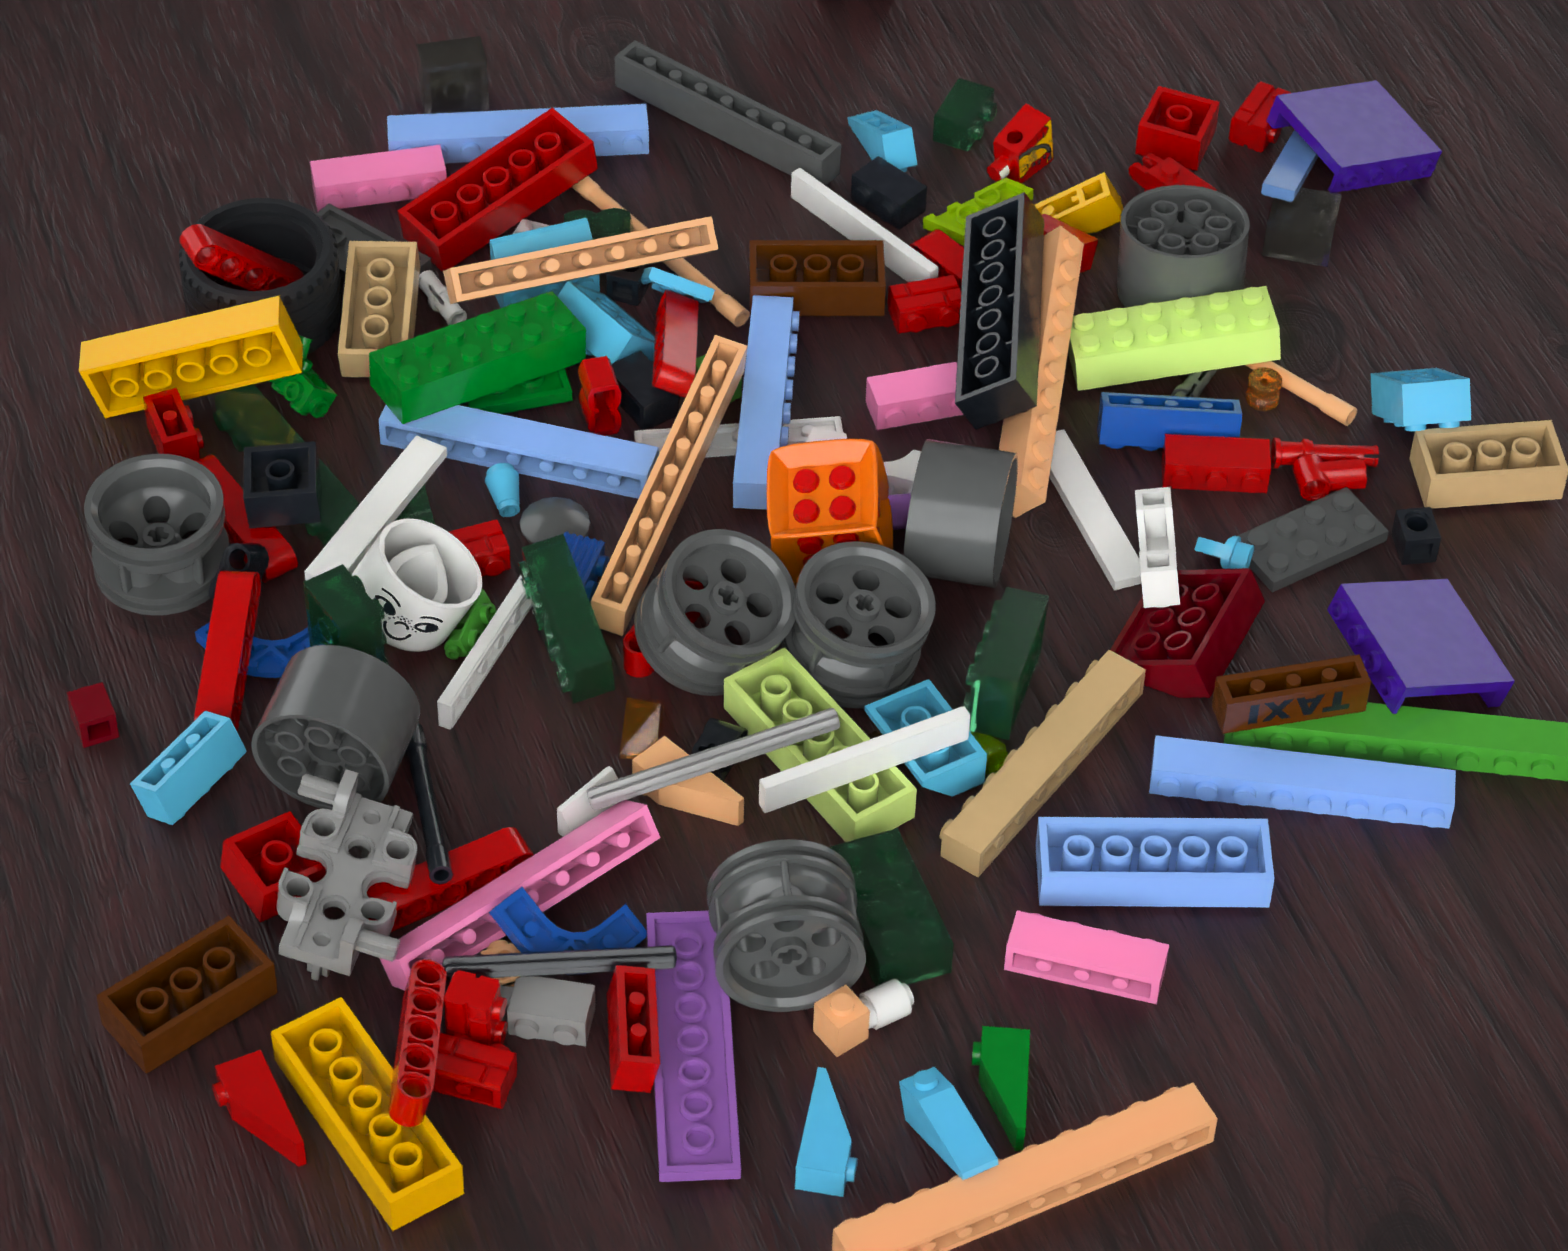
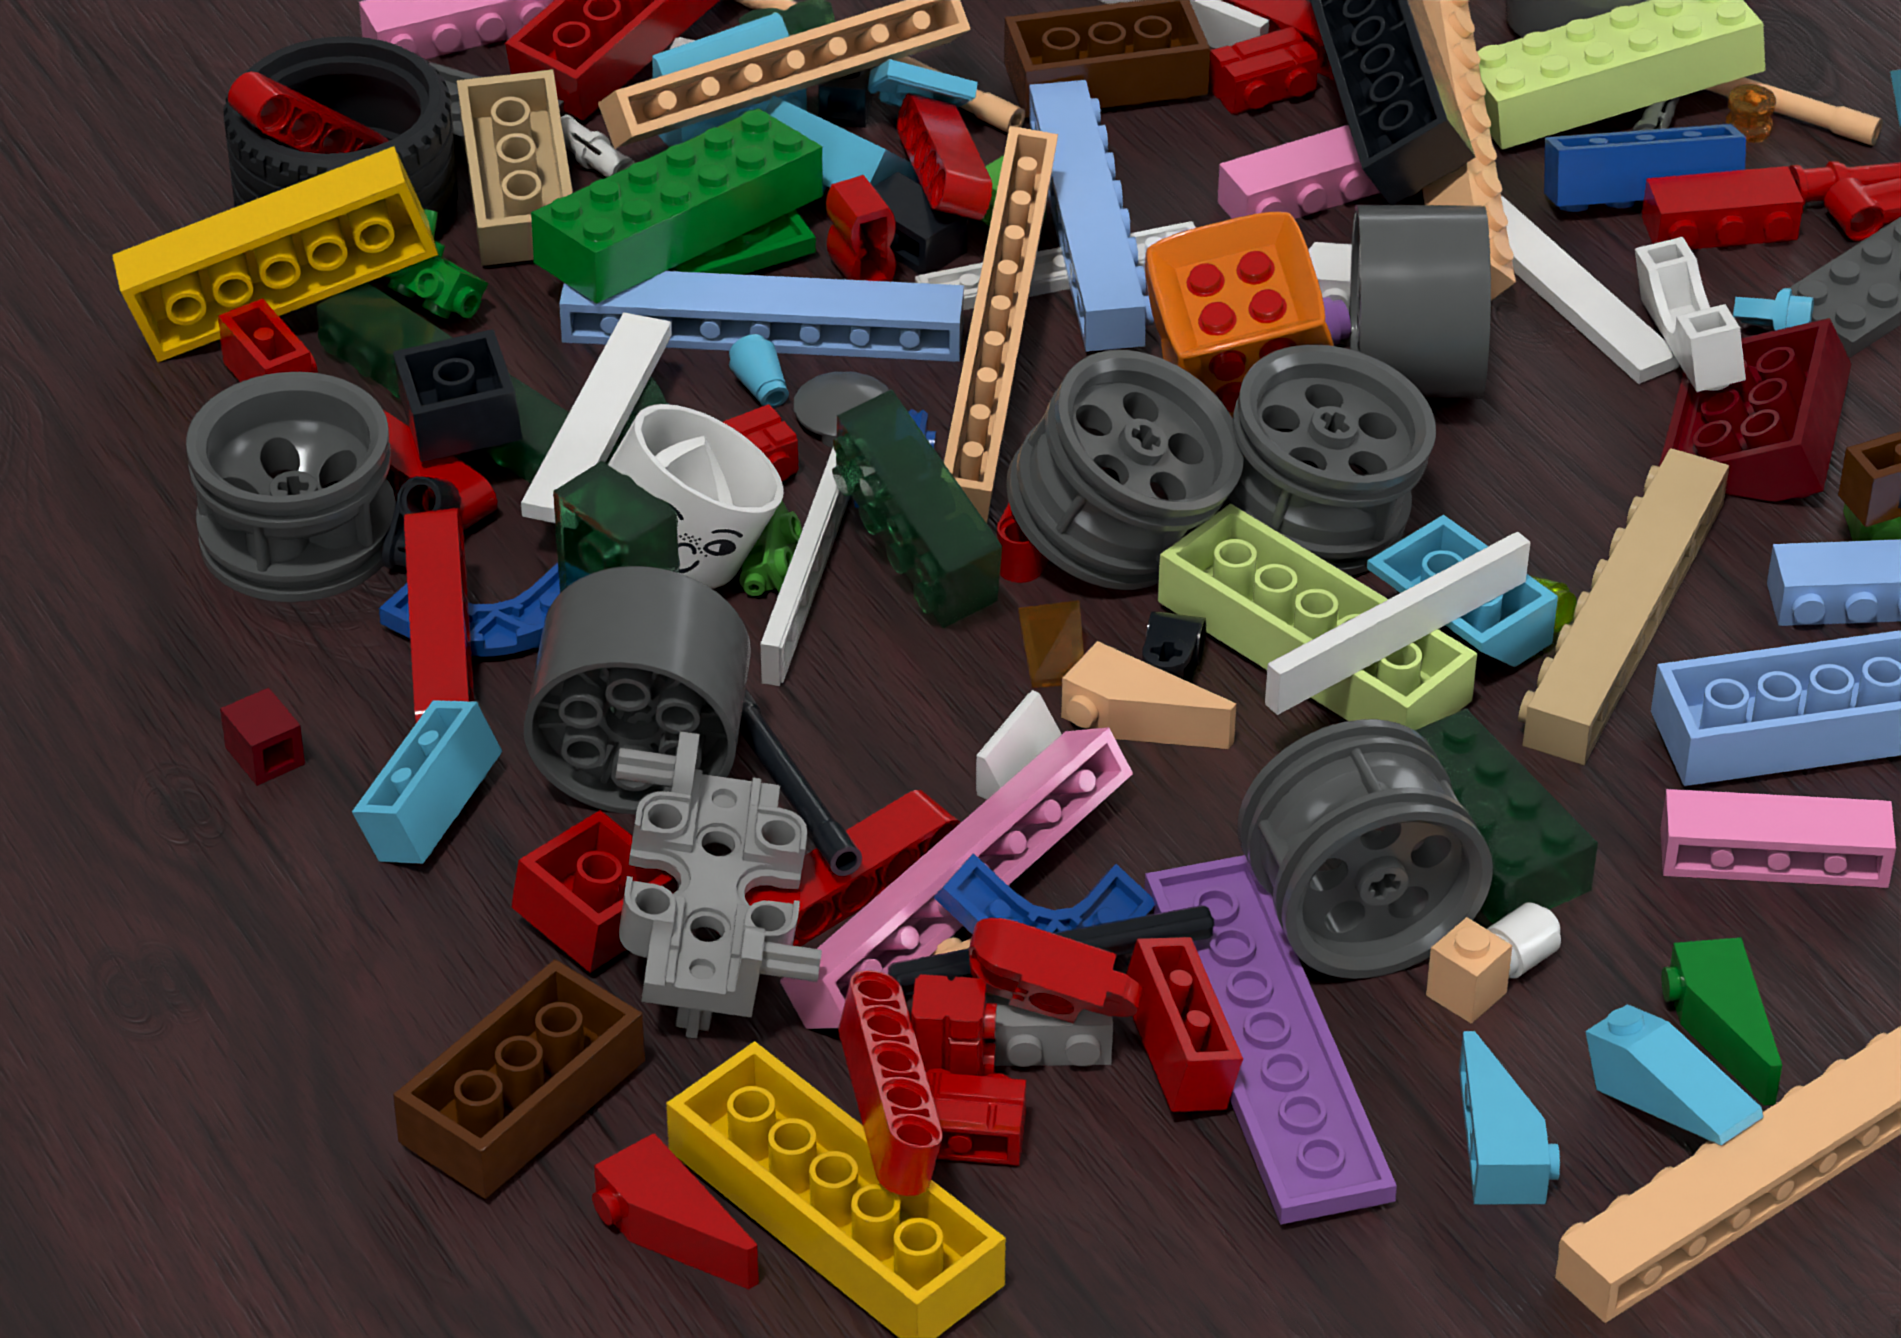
camera: 10 degrees left, 5 degrees down
(546, 981) = (1049, 972): none -> red piece
(713, 758) = (1180, 656): light grey axle -> none
(1005, 662) = (1542, 475): clear green brick -> none

